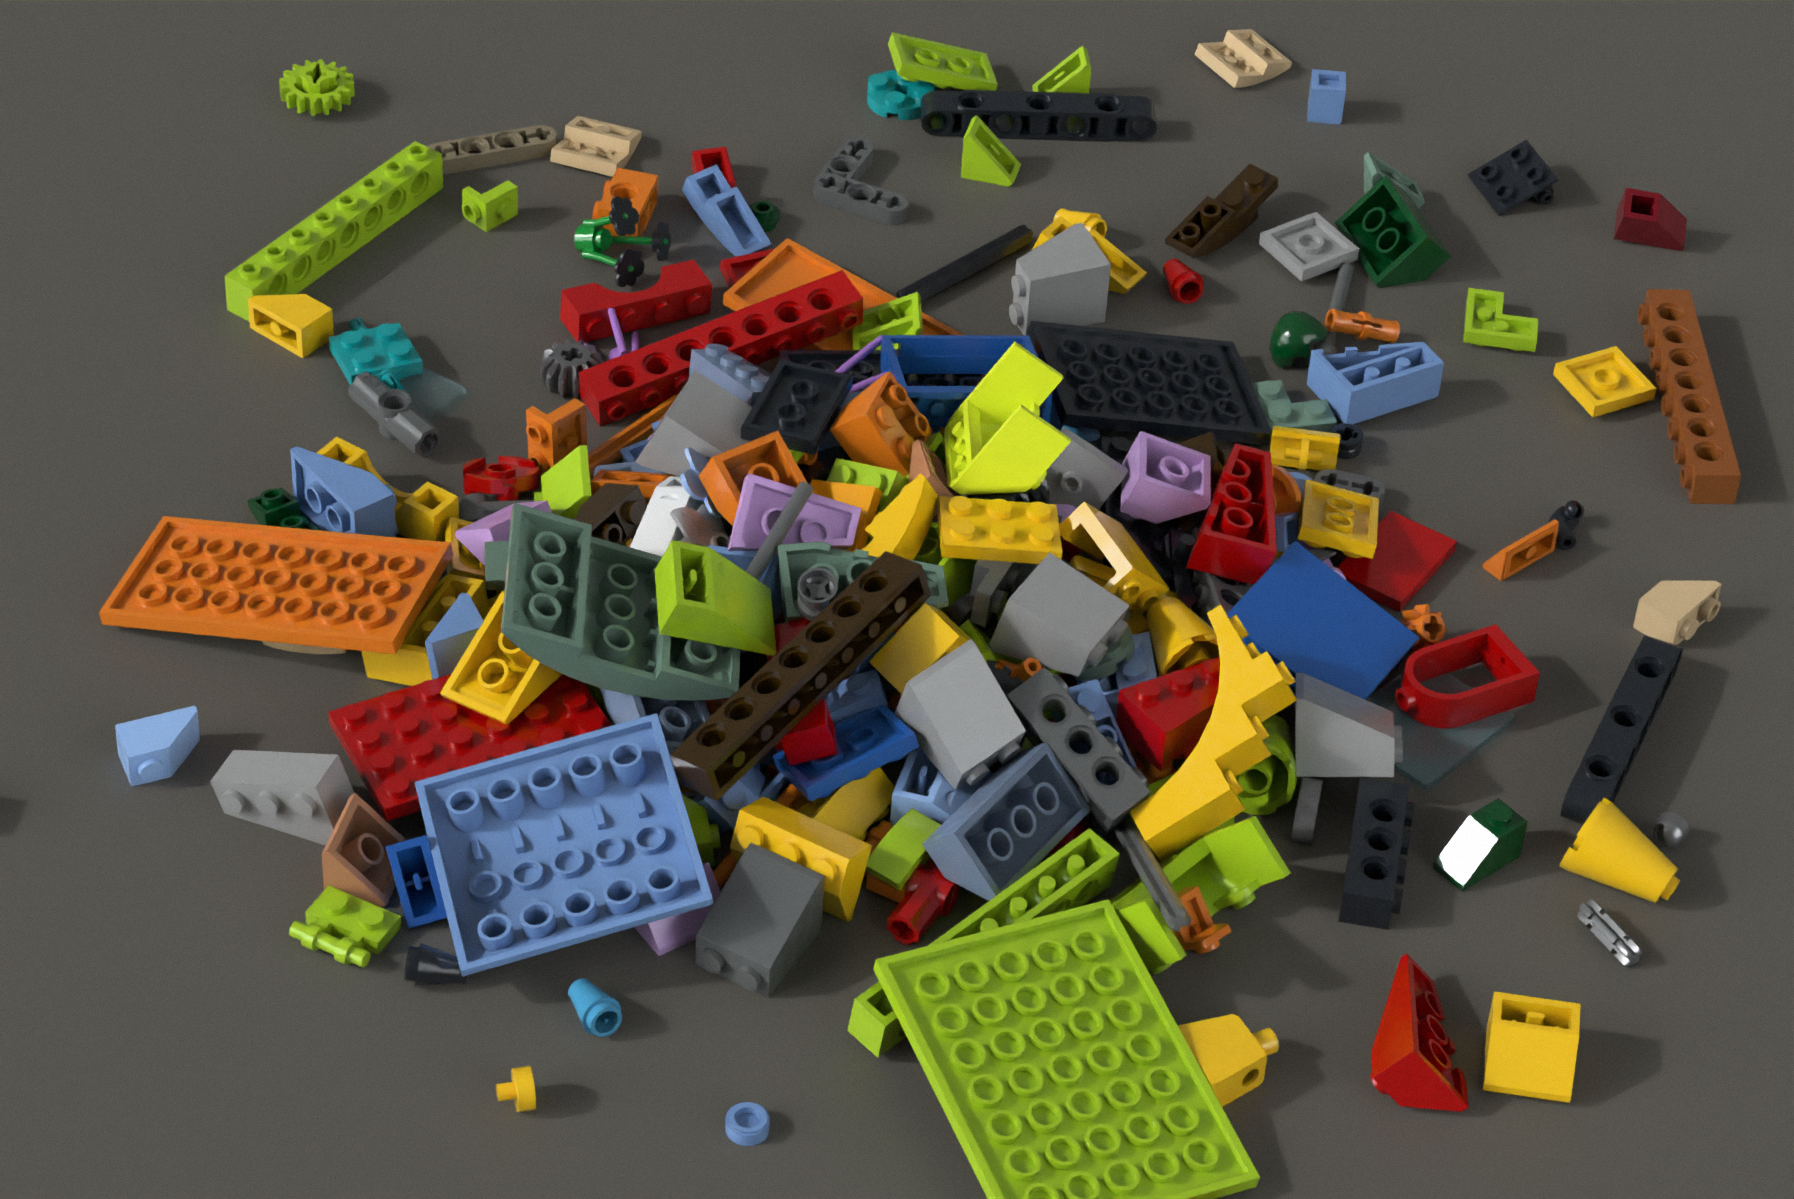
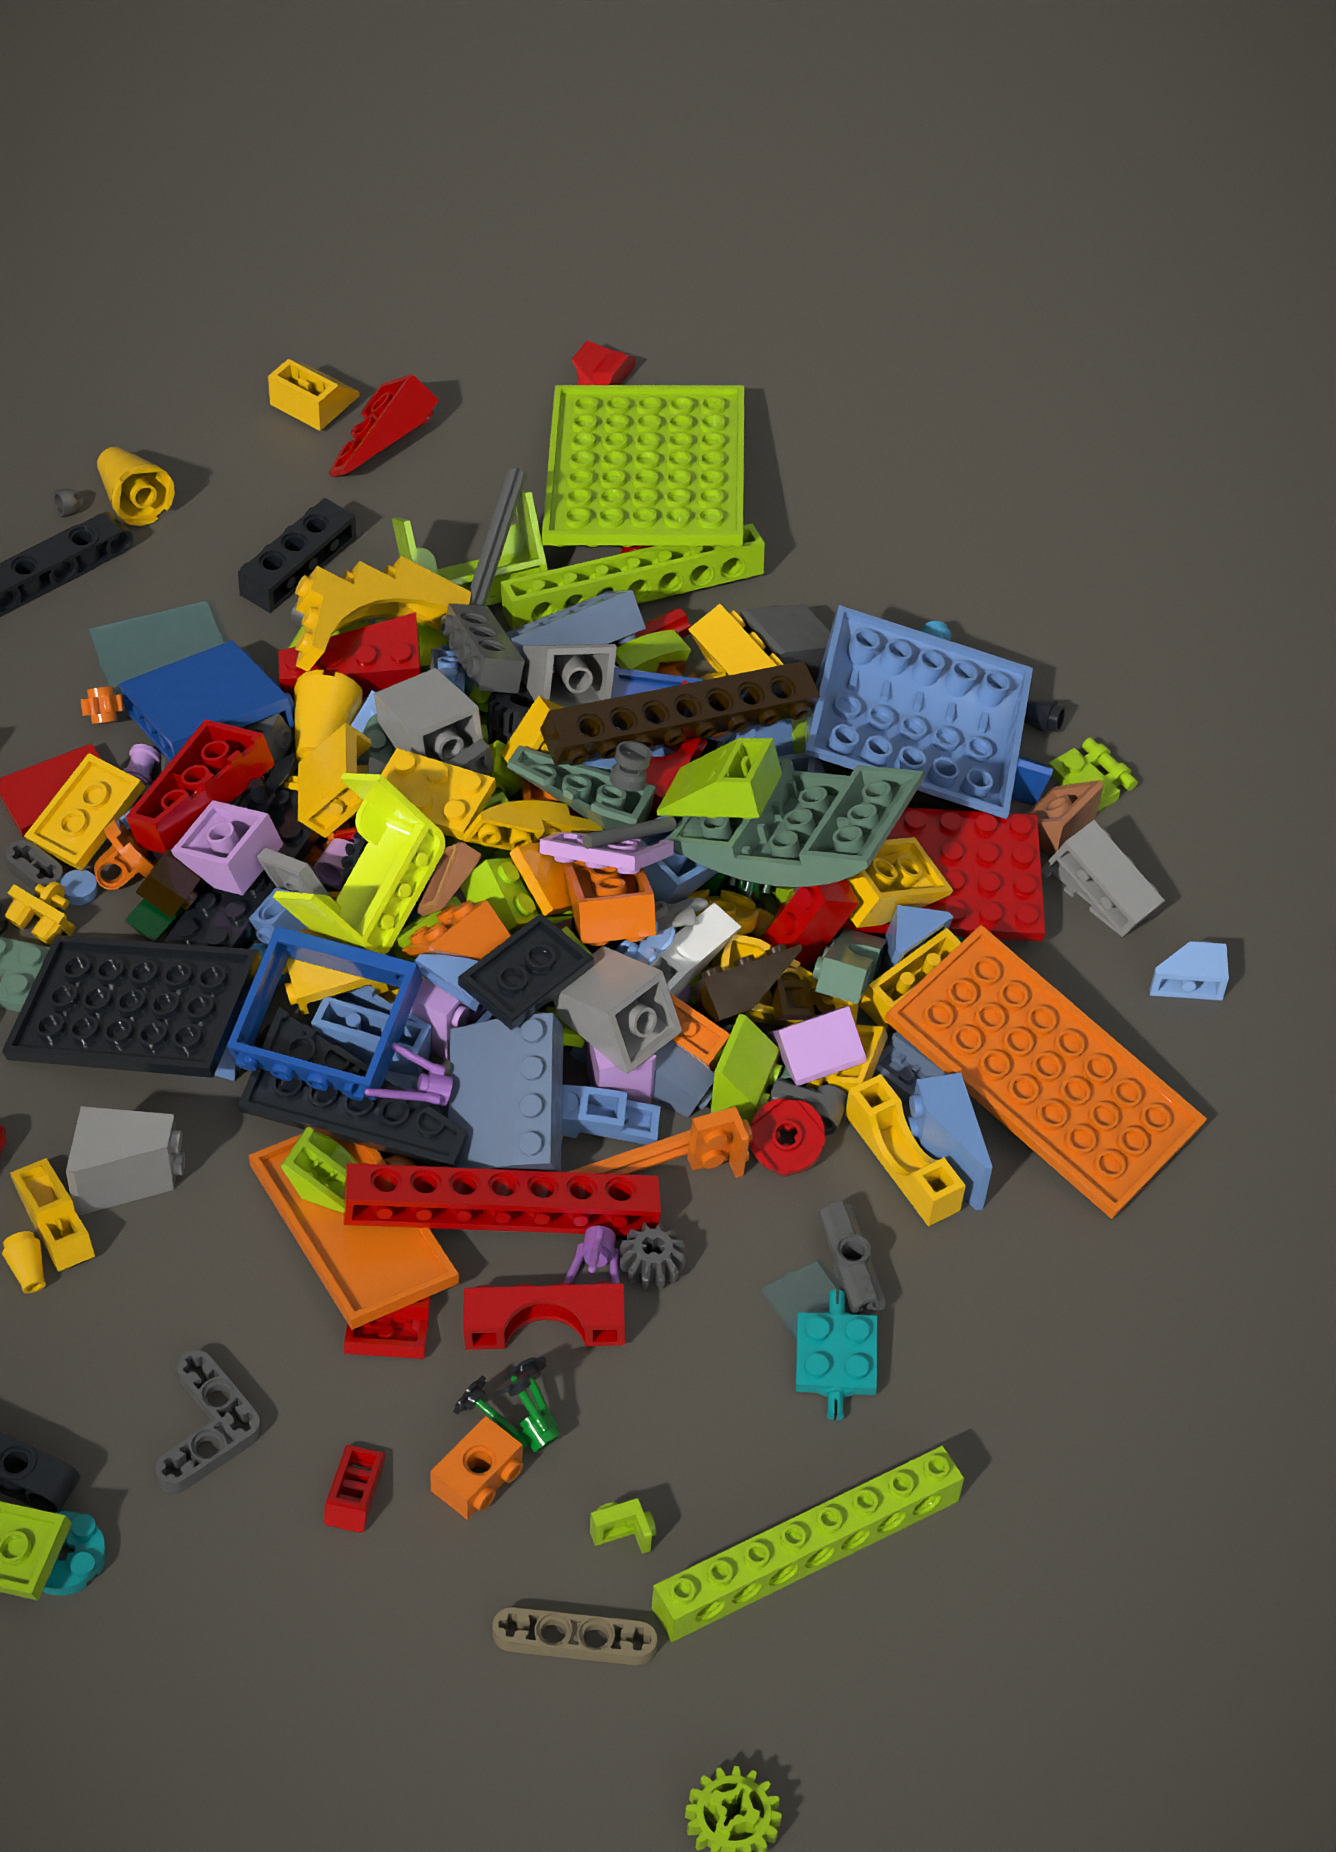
camera: 155 degrees left, 10 degrees up
(278, 509) = (1006, 1188): dark green slope -> none
(292, 321) = (901, 1423): yellow slope -> none
(520, 1089) = (1017, 605): yellow tile -> none
(595, 146) = (453, 1597): tan slope -> none
(725, 212) = (380, 1415): medium blue slope -> none
(747, 1123) = (867, 543): medium blue tile -> none
(766, 214) = (338, 1419): dark green plate -> none
(969, 263) = (177, 1258): black axle -> none
(987, 157) = (51, 1395): lime slope -> none
(1201, 933) = (468, 544): orange bracket -> none
(1230, 1054) = (521, 450): yellow torso -> none
(1342, 733) = (255, 615): light grey slope -> none
(1482, 845) = (214, 532): dark green slope -> none
(1514, 674) = (108, 626): red window -> none
(1610, 933) = (179, 455): axle -> none

